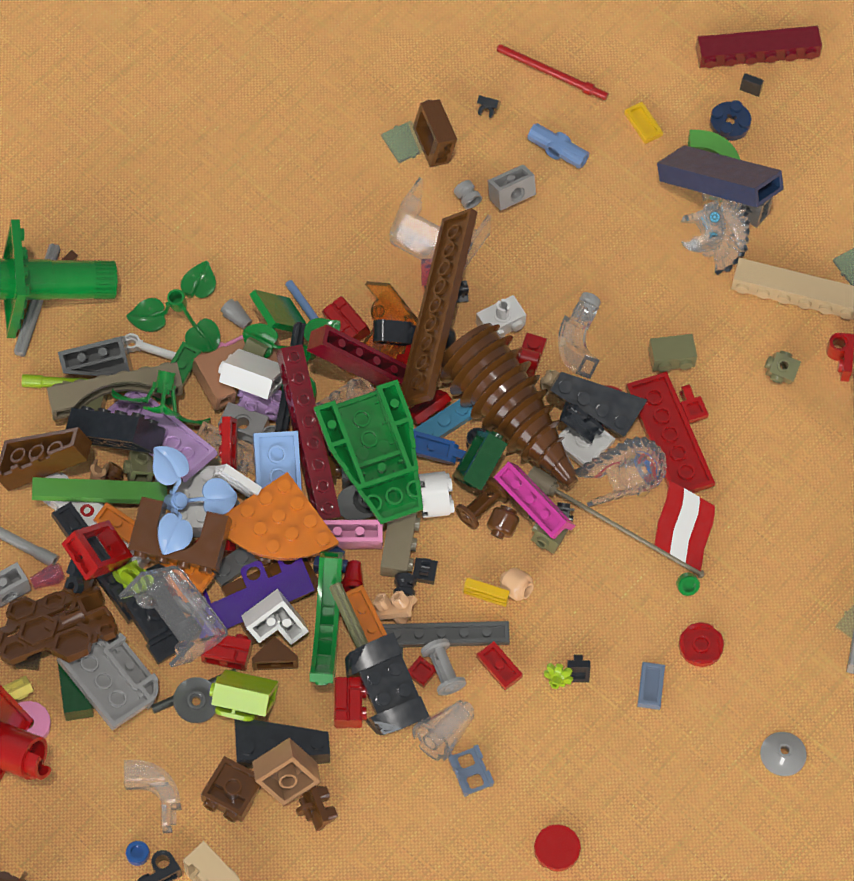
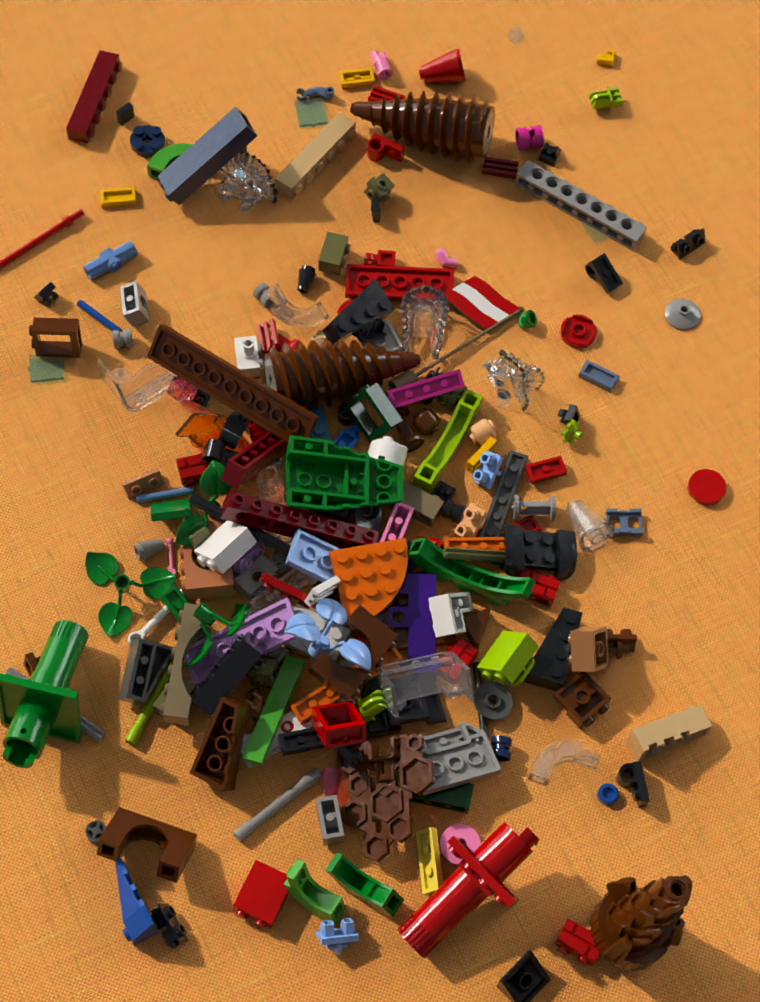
camera: 70 degrees left, 0 degrees up
(150, 723) = (501, 747): none -> dark blue wheel
(303, 277) = (147, 482): none -> nougat hinge
(361, 328) = (216, 451): none -> black plate
(447, 547) = (438, 459): none -> lime arch
(468, 605) = (488, 469): none -> light blue hips
(486, 164) = (102, 319): none -> blue bar
(535, 328) = (265, 327): none -> tile
(592, 589) = (513, 379): none -> clear piece
(628, 339) = (305, 278): none -> black cone
(726, 469) = (444, 259): none -> bright pink arm
(755, 375) = (375, 209): none -> black tile
(790, 645) = (605, 272): none -> black plate

